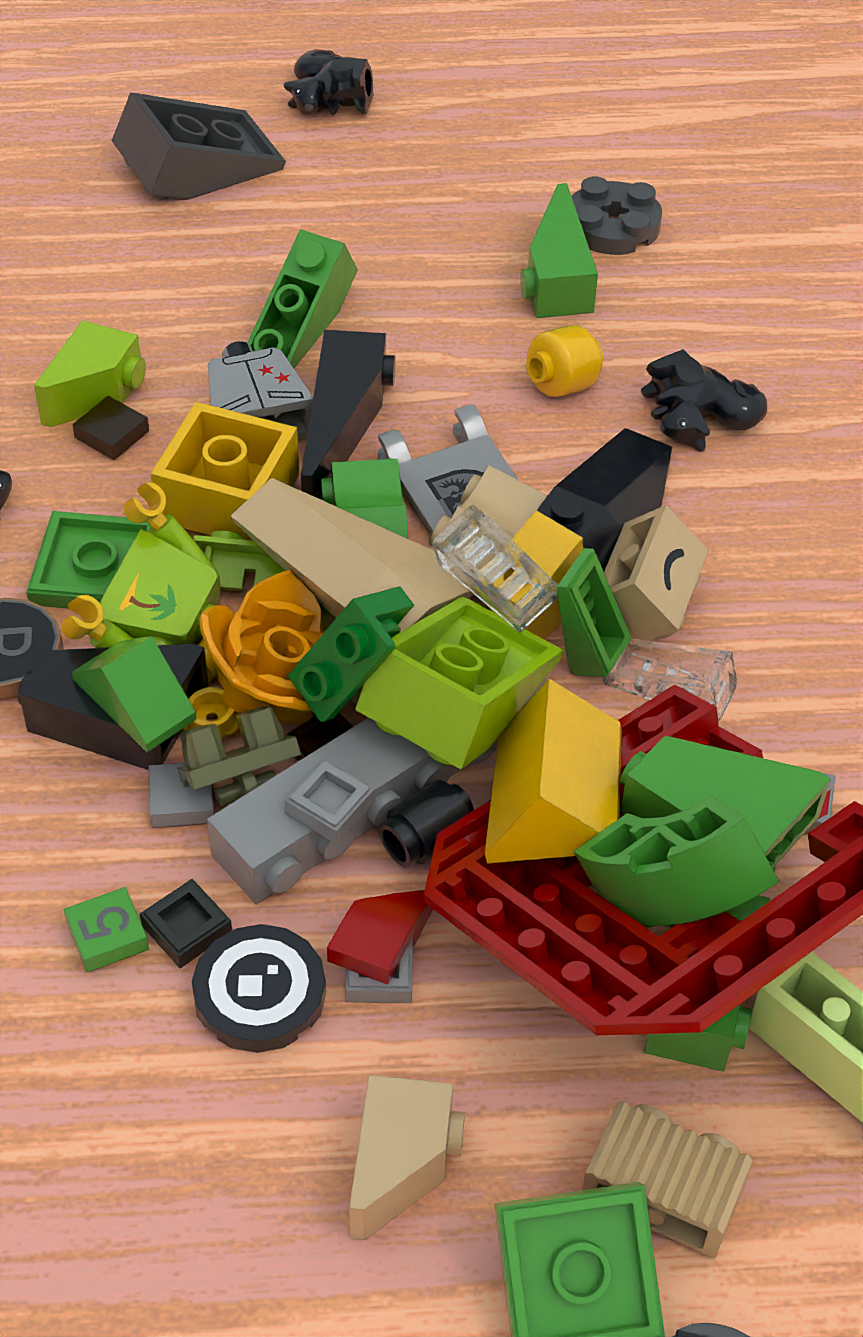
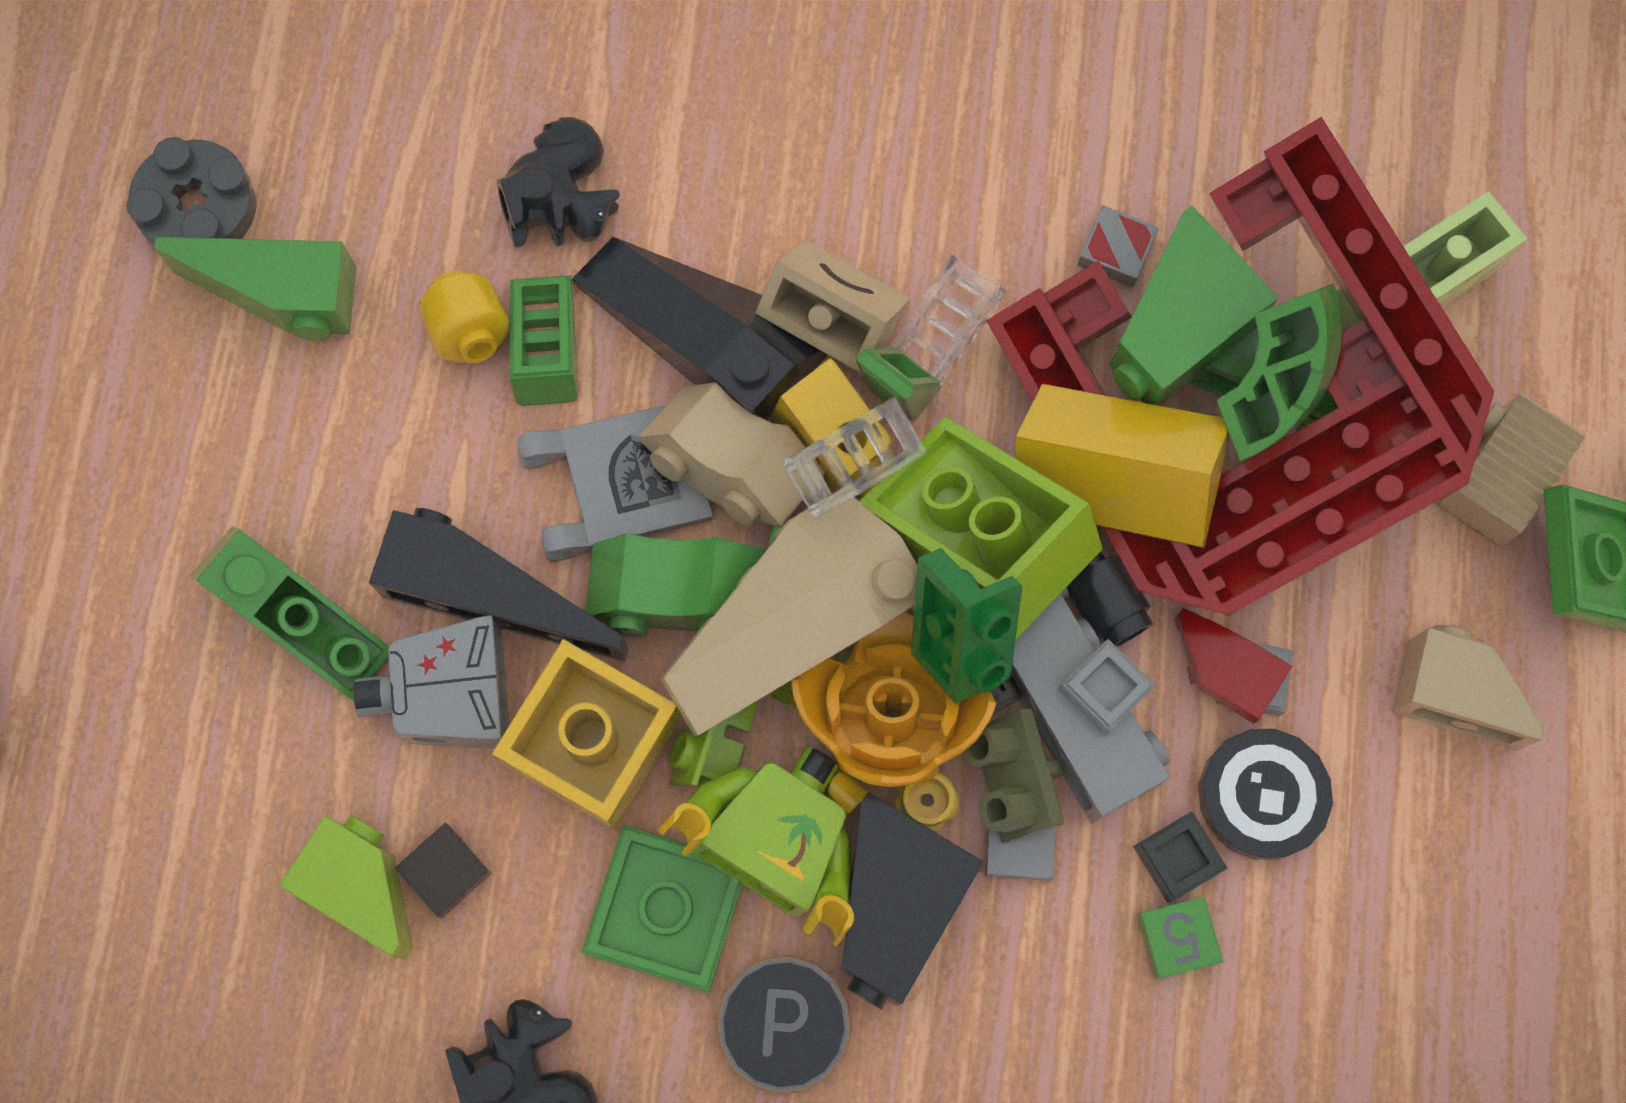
camera: 80 degrees left, 25 degrees up
(137, 691) = (930, 874): bright green slope -> none
(545, 417) = (543, 376): none -> bright green slope

